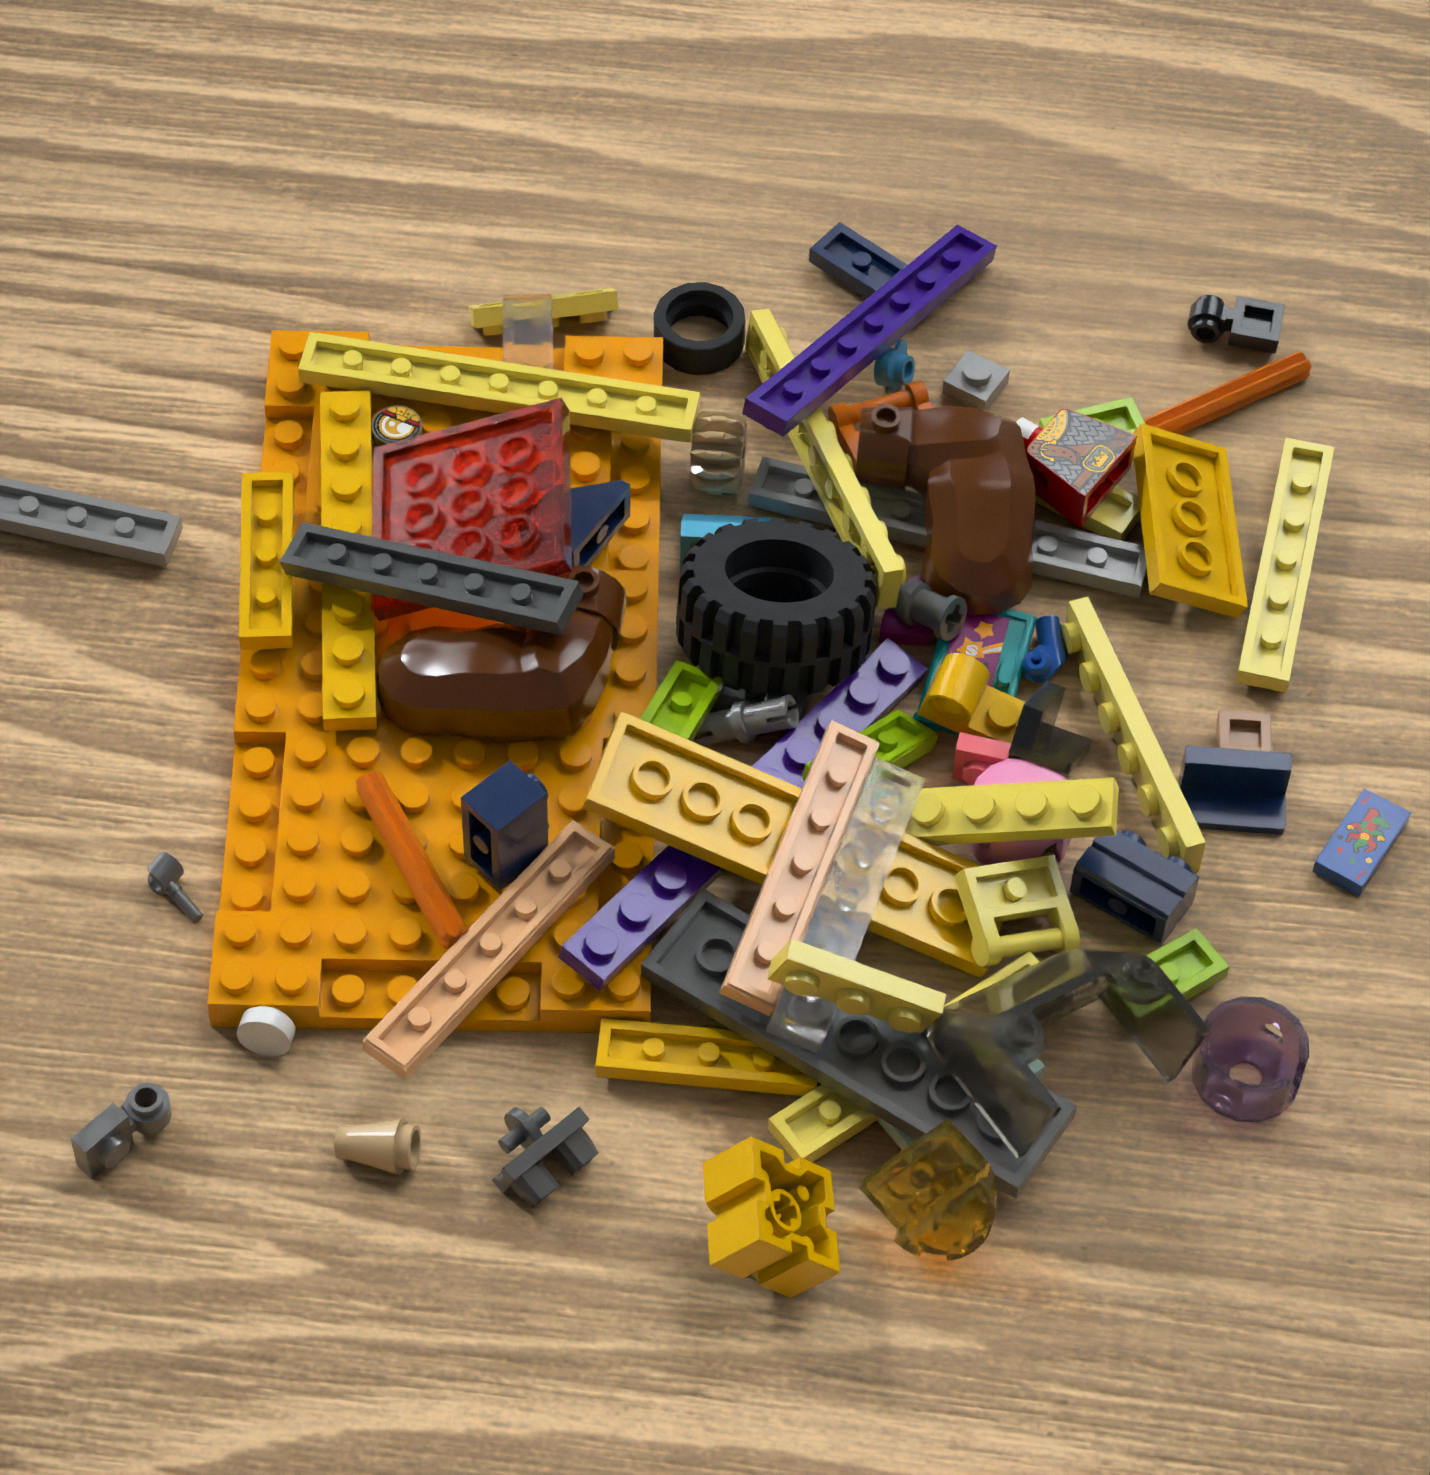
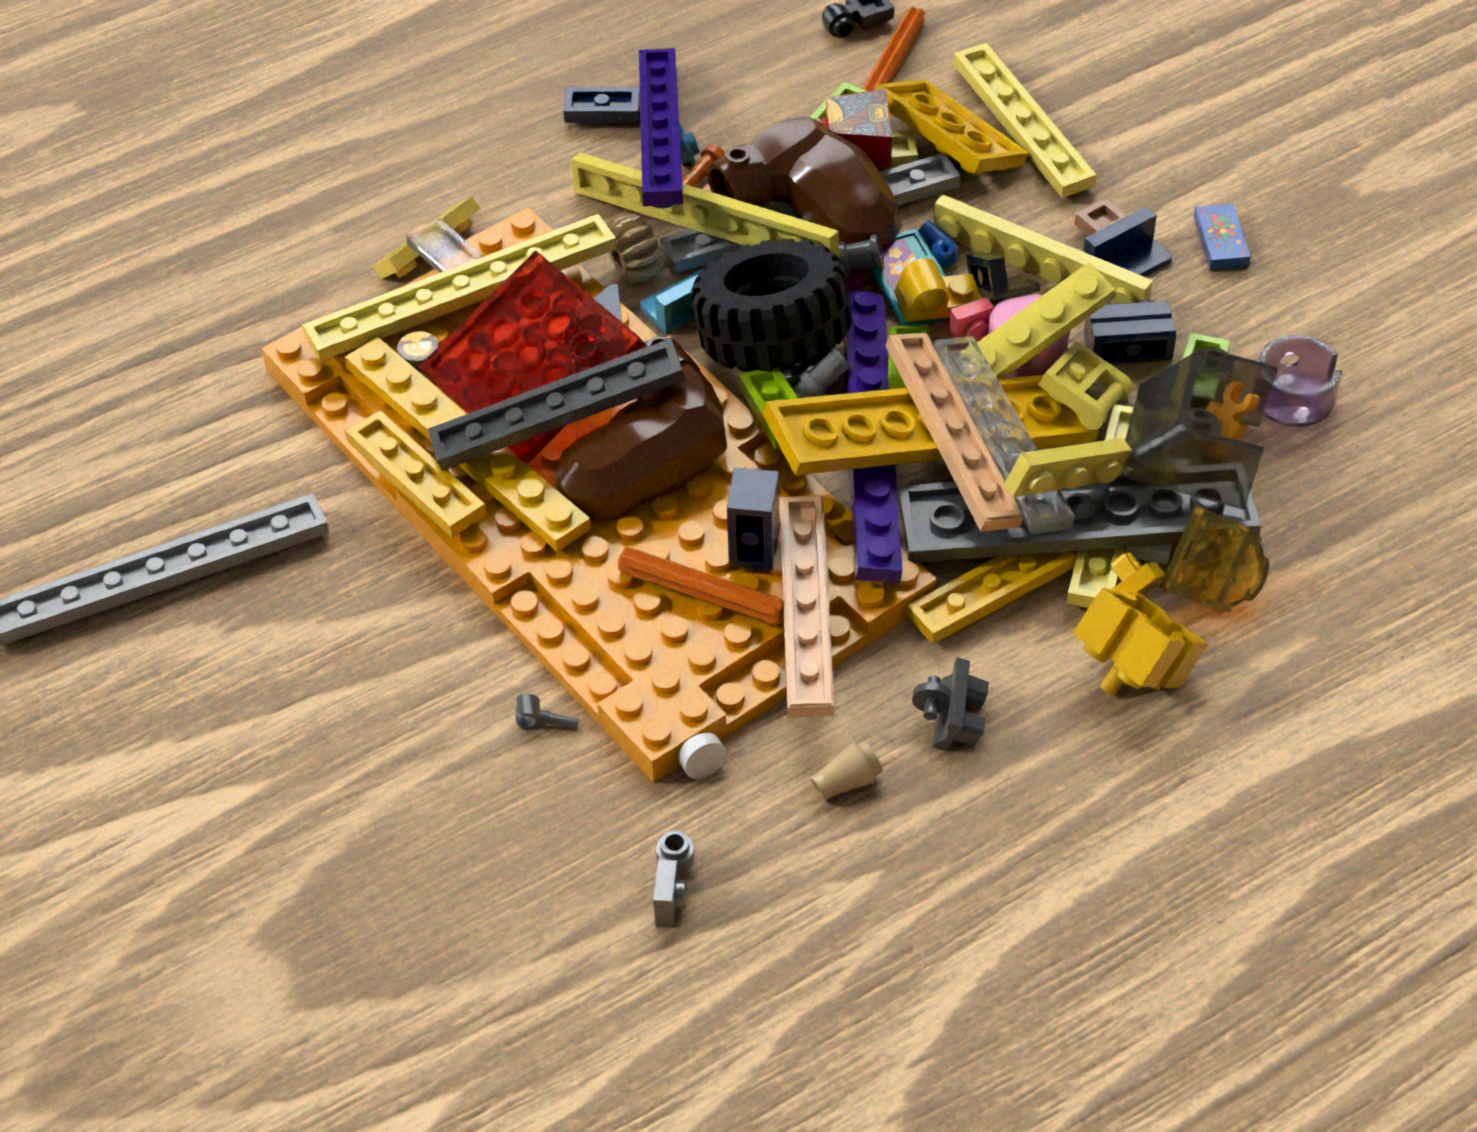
camera: 35 degrees left, 5 degrees down
(707, 301) = (540, 174): black tyre -> none
(845, 1147) = (1134, 575): none -> yellow tile
(975, 381) = (736, 128): light grey plate -> none
(1114, 1051) = (1231, 411): none -> light orange plate

